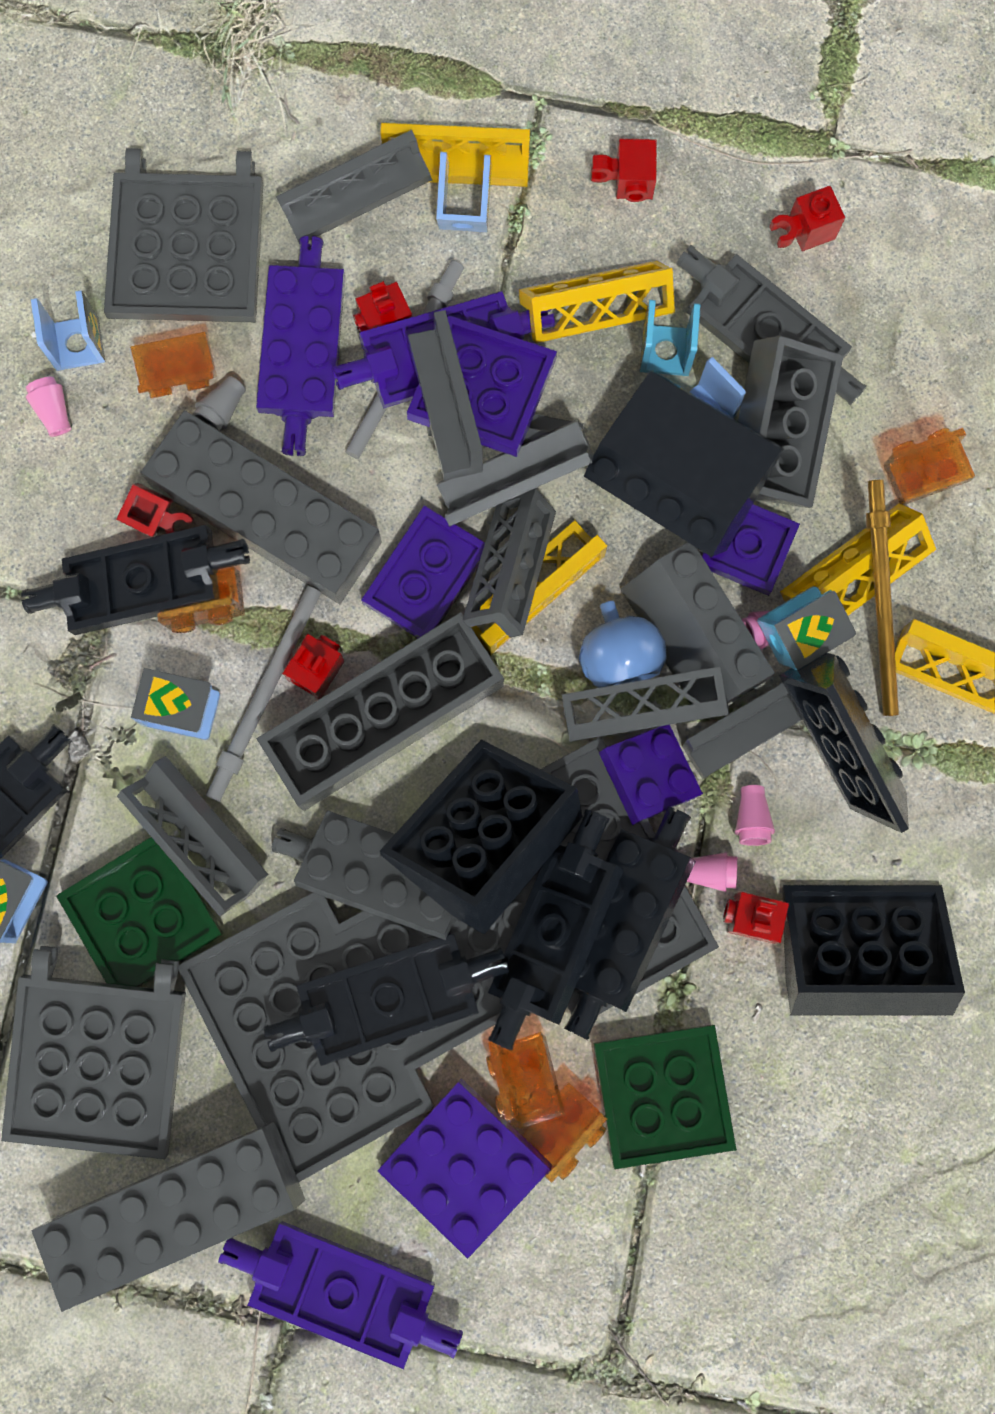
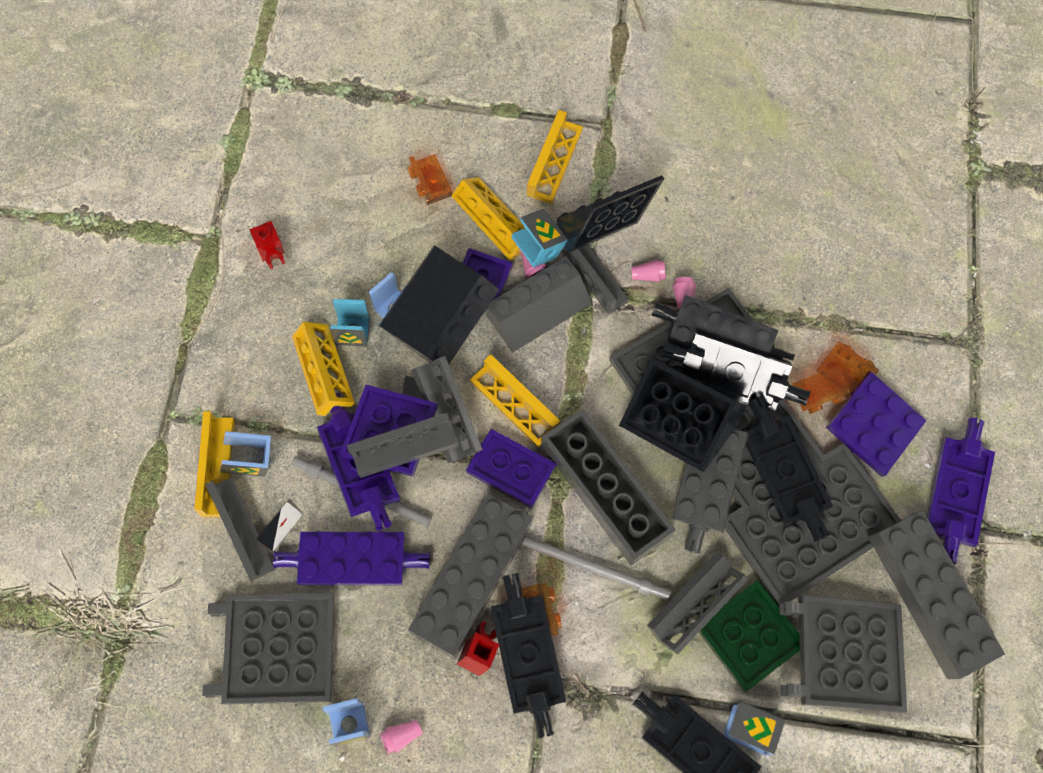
camera: 95 degrees left, 10 degrees down
(174, 363) = (369, 646): clear orange bracket -> none
(175, 704) = (611, 621): piece -> none
(220, 404) = (398, 613): light grey cone -> none
(314, 665) = (577, 533): red brick -> none
(358, 246) = (279, 526): none -> sticker
(381, 307) = (331, 505): red brick -> none
(520, 561) = (509, 403): dark grey fence -> none
(622, 649) = (556, 345): medium blue piece -> none
(632, 169) = (229, 350): red brick -> none
(648, 719) = (597, 325): dark grey fence -> none
(650, 773) = (630, 328): dark purple plate -> none
(664, 1096) = (817, 316): dark green plate -> none
(747, 307) = (340, 267): dark grey plate -> none
(756, 917) = (709, 268): red brick -> none
(791, 404) = (397, 250): dark grey slope -> none
(870, 951) = (720, 210): black slope -> none
(878, 520) = (469, 200): pearl gold bar -> none

